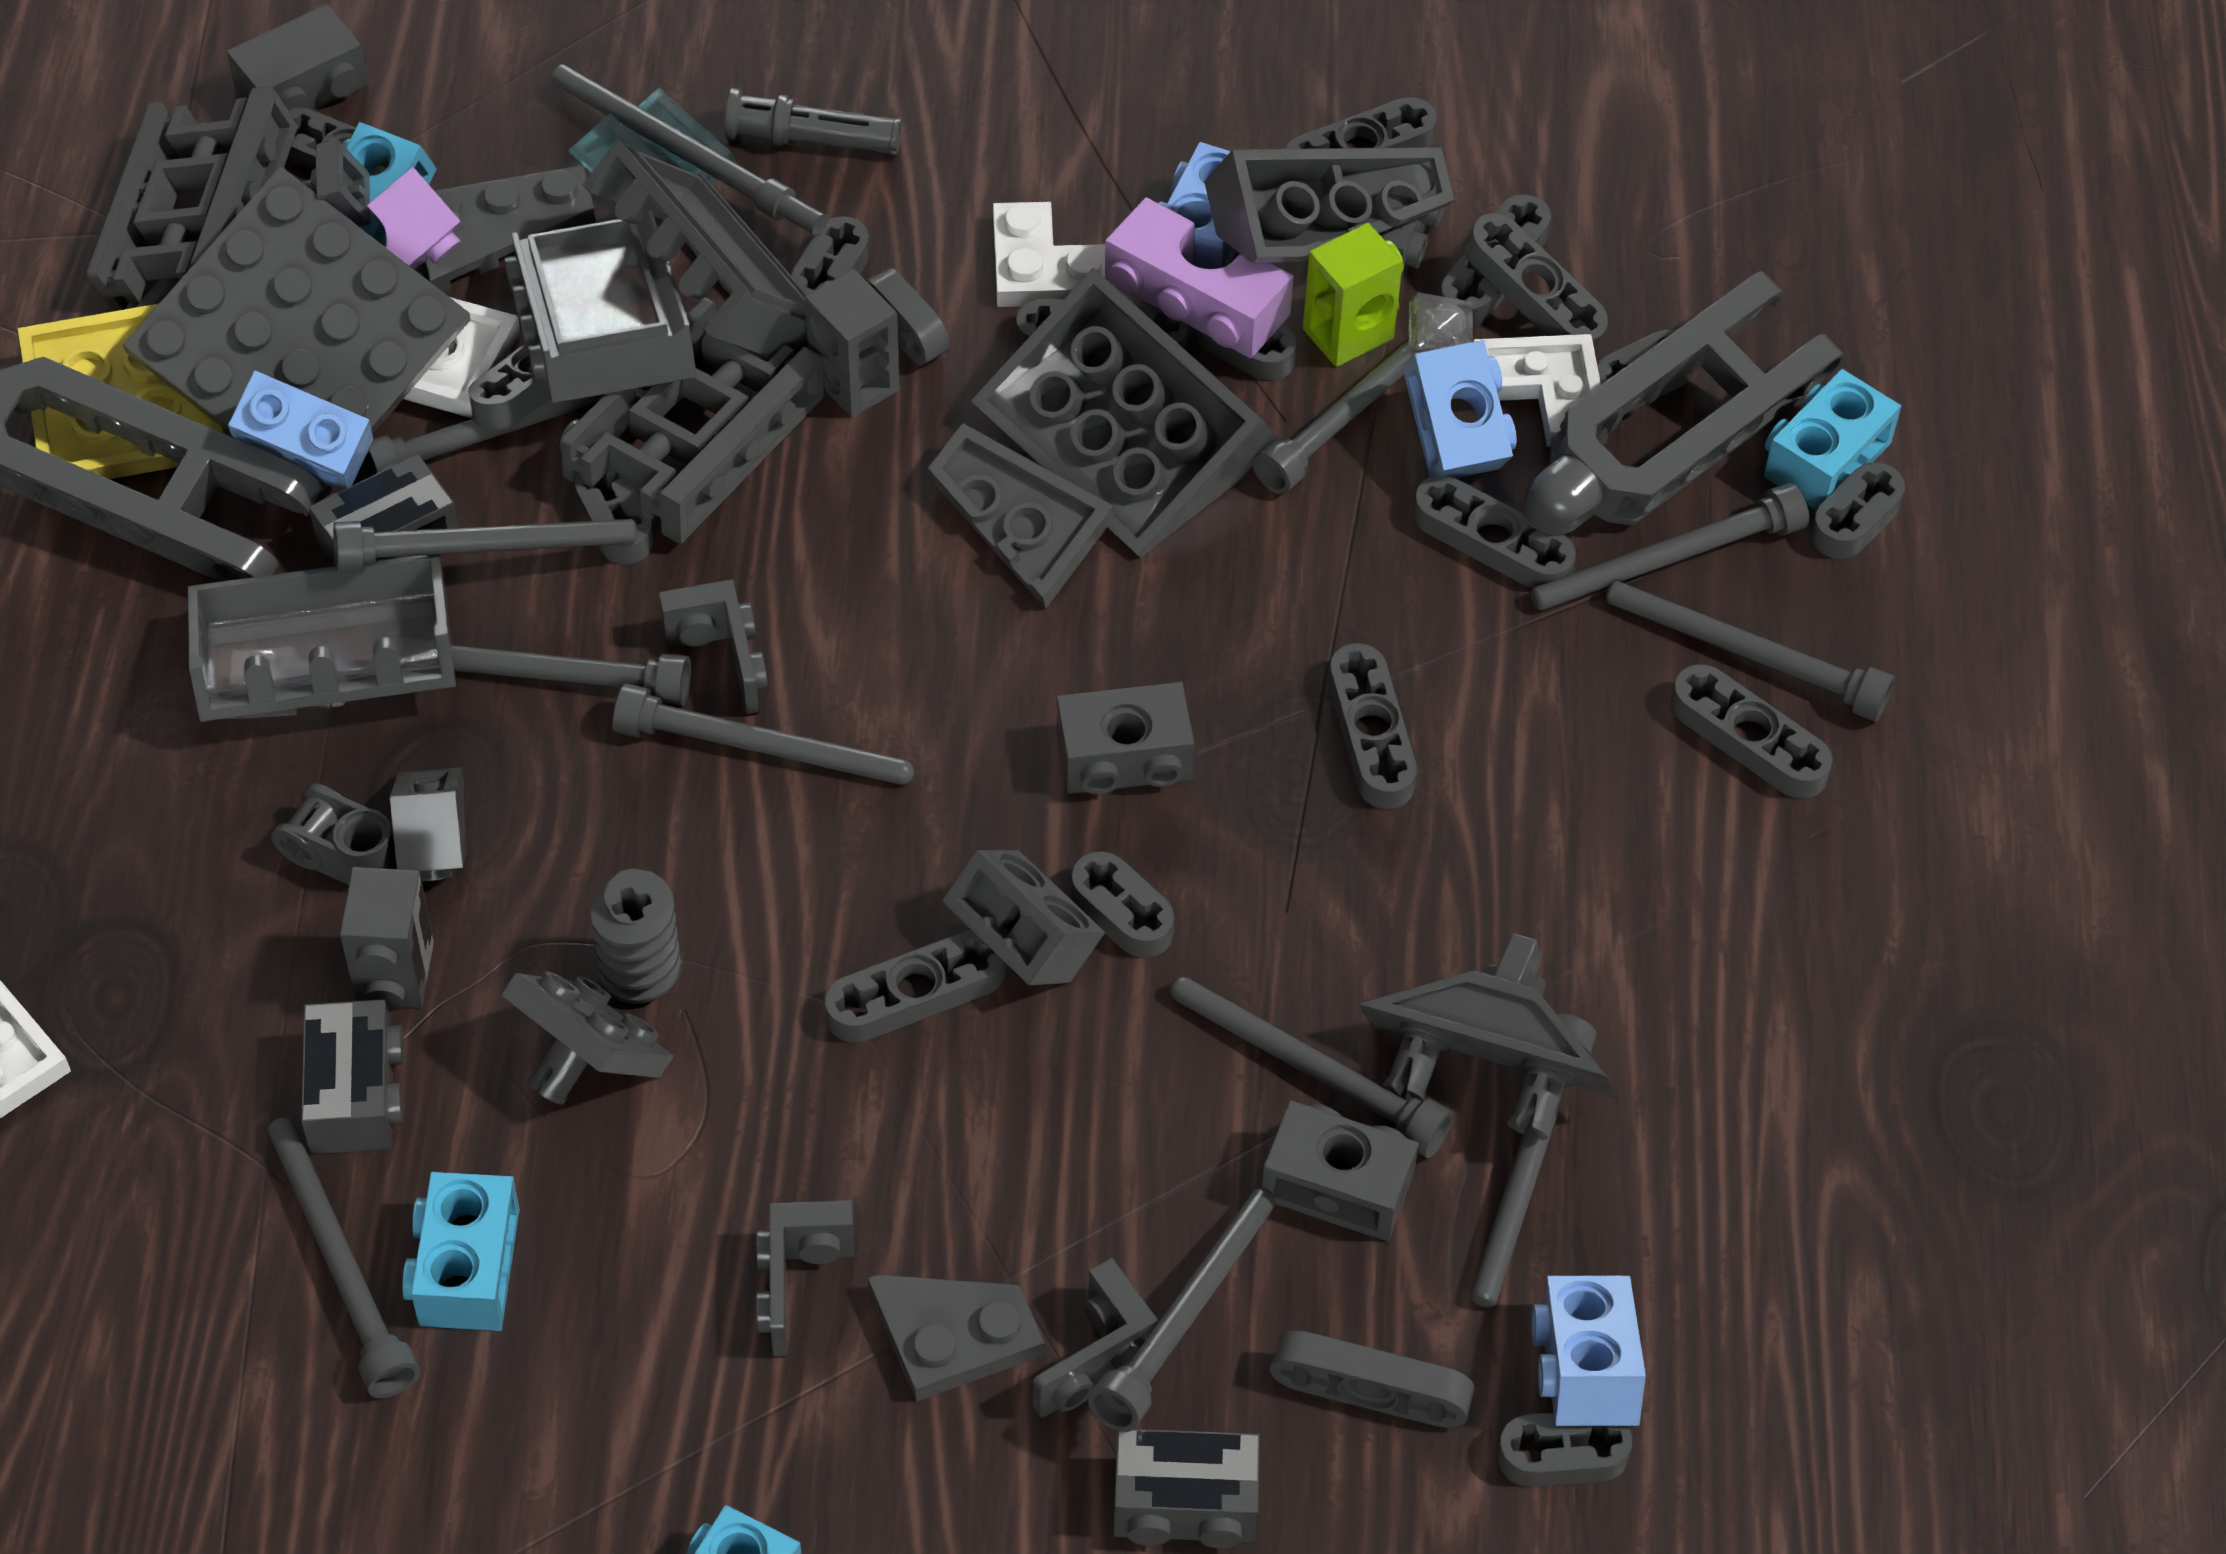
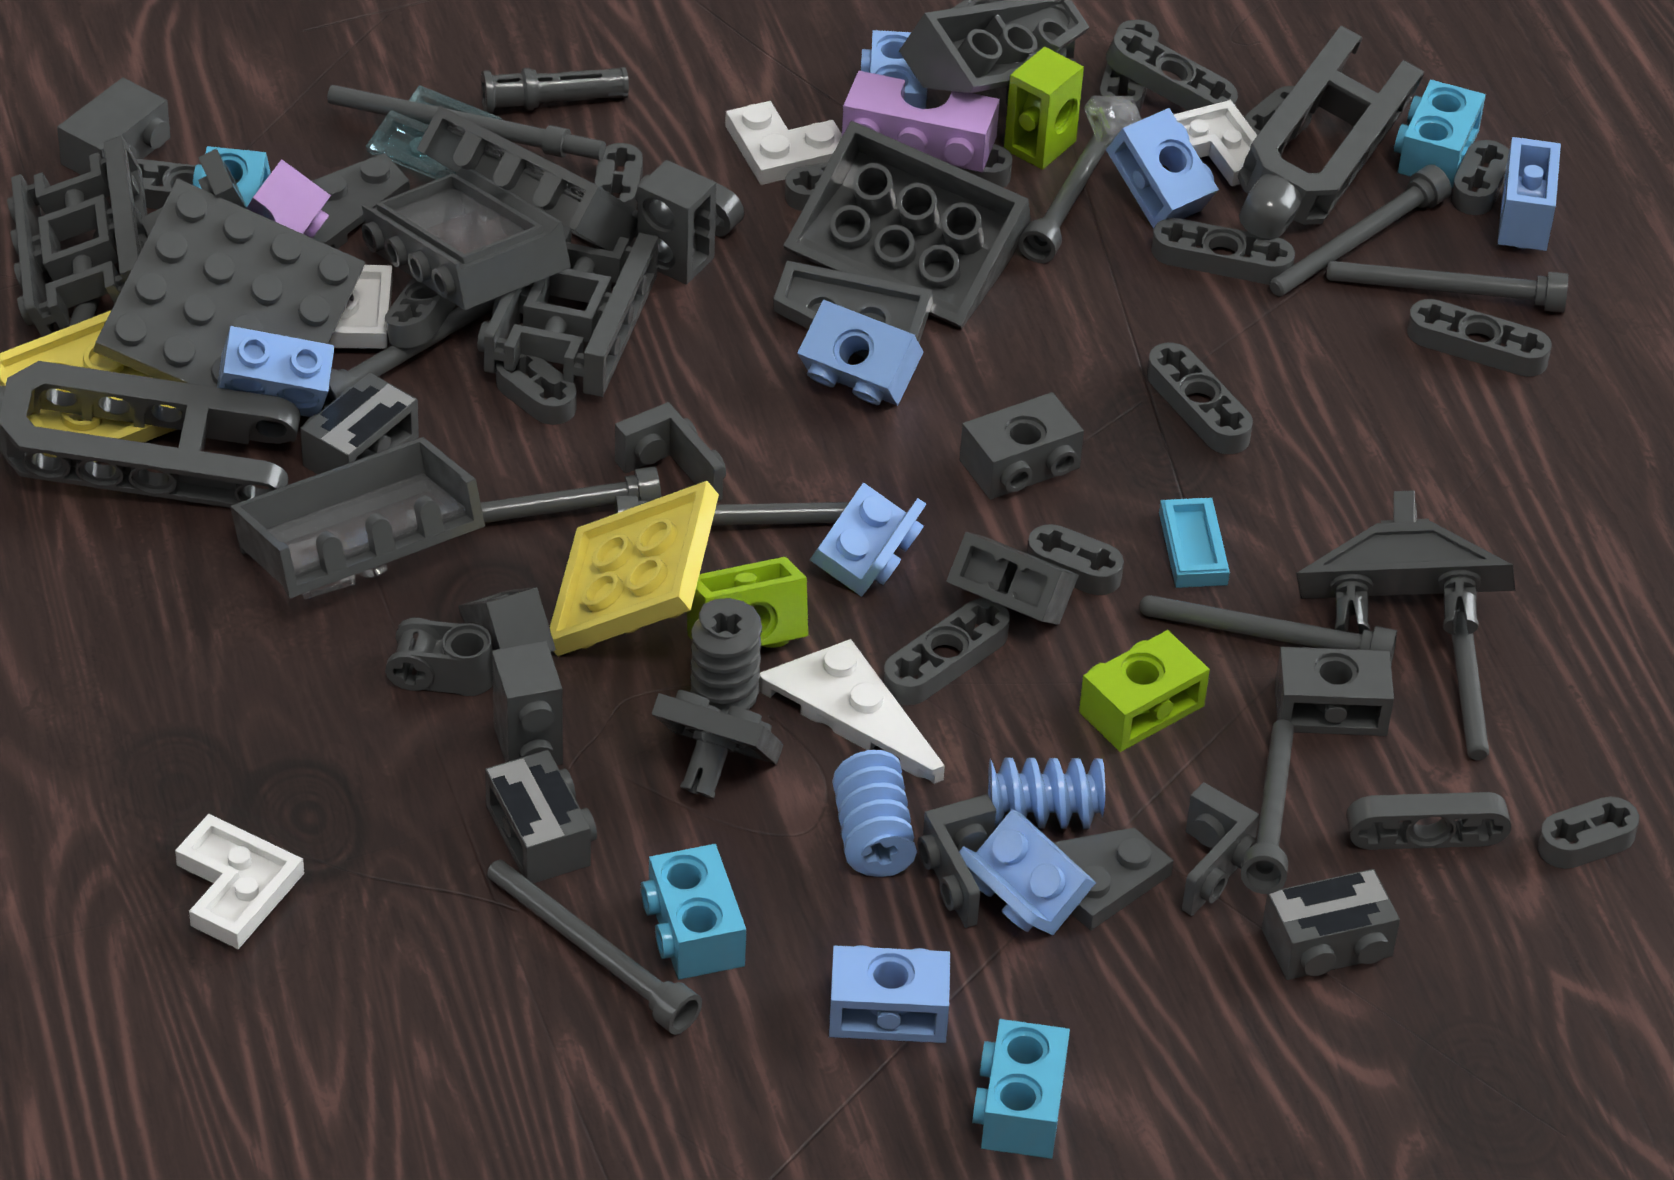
camera: 20 degrees left, 10 degrees down
(361, 546) = (361, 441): dark grey piece -> none
(589, 790) = (633, 568): none -> light yellow plate
(652, 1454) = (889, 994): none -> light blue brick
(709, 865) = (770, 586): none -> lime brick
(722, 1182) = (874, 814): none -> light blue piece
(774, 1010) = (849, 697): none -> white wing
(858, 1315) = (1028, 874): none -> light blue bracket
(886, 812) = (865, 538): none -> light blue bracket
(928, 1214) = (1048, 791): none -> light blue piece
(1019, 581) = (839, 334): none -> light blue brick
(1093, 1132) = (1143, 690): none -> lime brick
(1275, 918) = (1194, 542): none -> medium azure tile
(1591, 1351) = (1582, 756): light blue brick -> none
(1894, 554) = (1529, 194): none -> light blue brick

